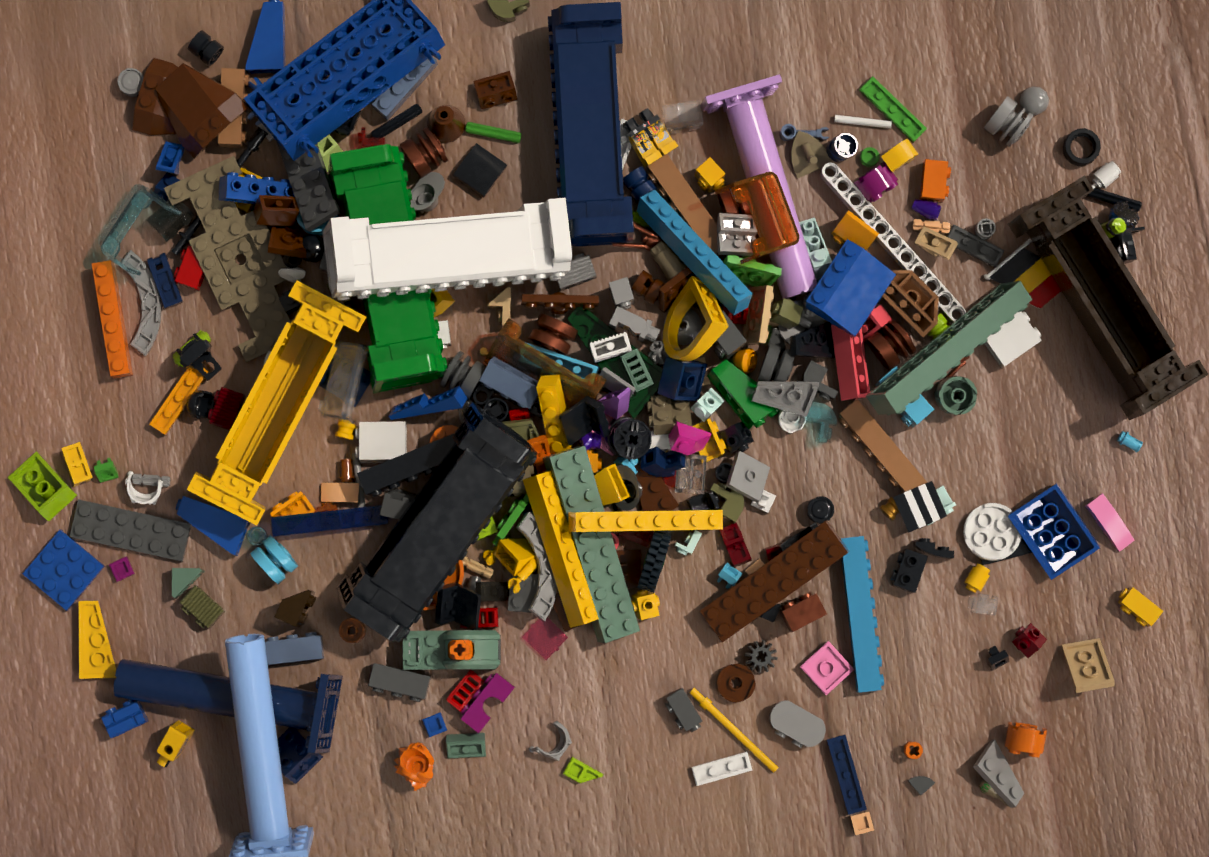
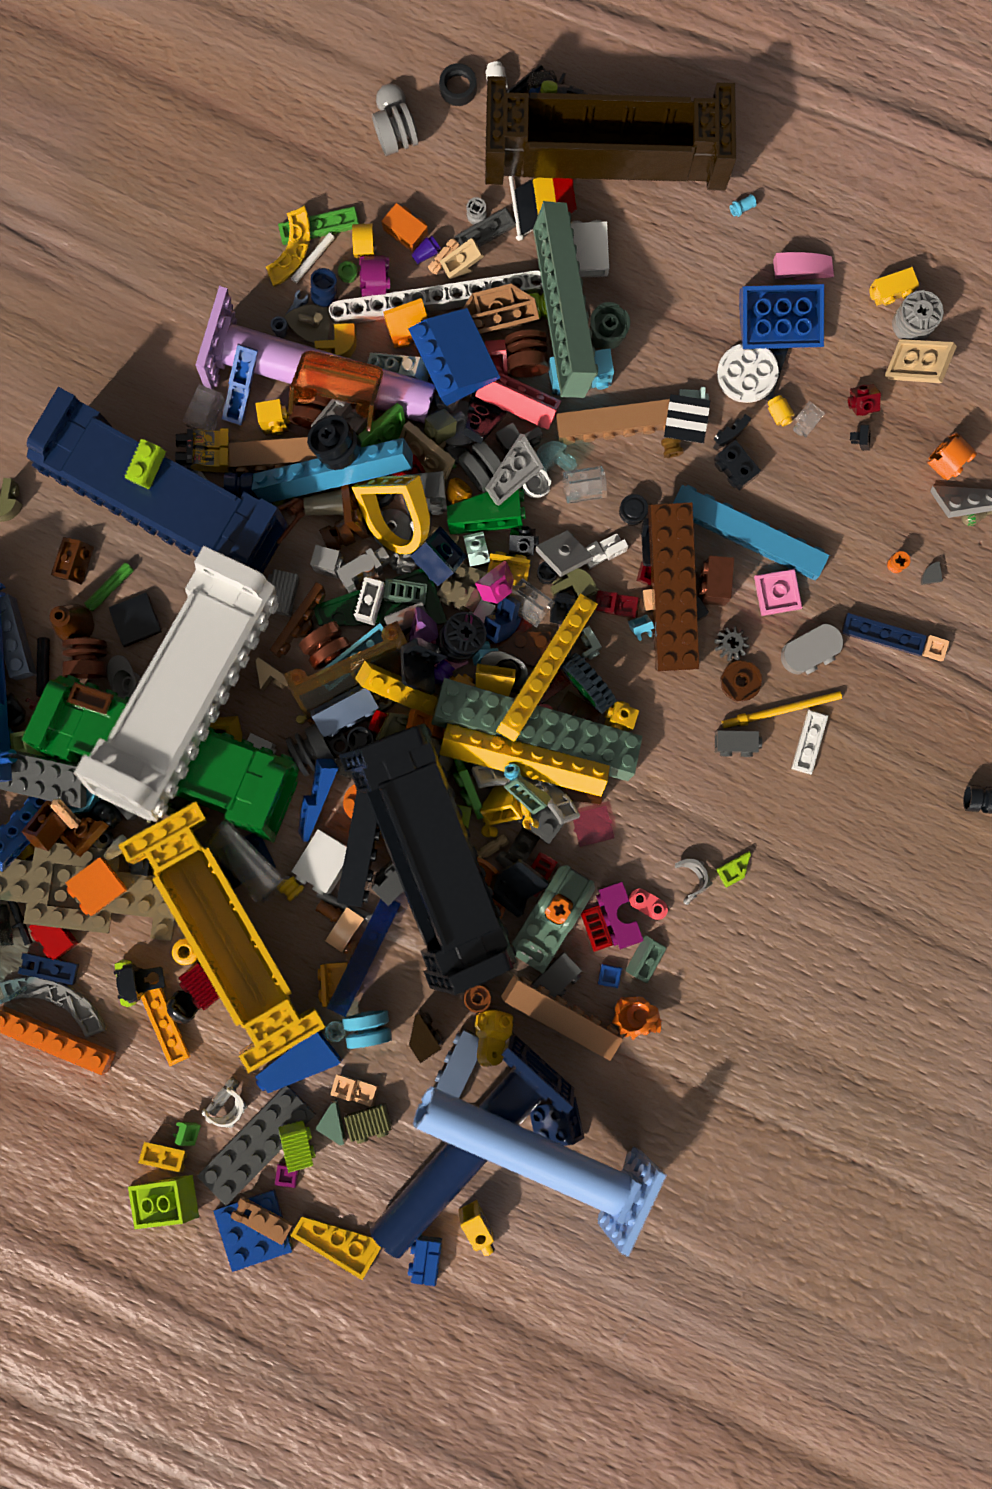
camera: 50 degrees left, 0 degrees up
(76, 572) = (262, 1220): none -> medium nougat plate
(149, 562) = (296, 1146): none -> lime brick
(220, 580) = (354, 1090): none -> light nougat slope
(240, 375) = (180, 955): none -> yellow head
(252, 278) = (95, 886): none -> orange piece
(293, 219) = (65, 813): none -> light nougat axle
(334, 658) = (493, 1030): none -> yellow piece
(378, 706) = (562, 1017): none -> medium nougat brick
(394, 183) = (90, 698): none -> reddish brown tile
(510, 719) = (648, 904): none -> coral plate
(534, 572) = (532, 797): none -> sand green slope
(543, 546) = (512, 771): none -> medium azure pin
(602, 108) = (145, 464): none -> lime brick
(714, 242) = (334, 442): none -> black wheel
(717, 135) = (240, 384): none -> blue slope
(780, 512) = (613, 546): none -> white bracket
(807, 192) = (344, 342): none -> yellow brick
(814, 458) = (584, 484): none -> clear brick
(859, 104) = (296, 248): none -> yellow tile
(1114, 643) = (917, 316): none -> light grey wheel

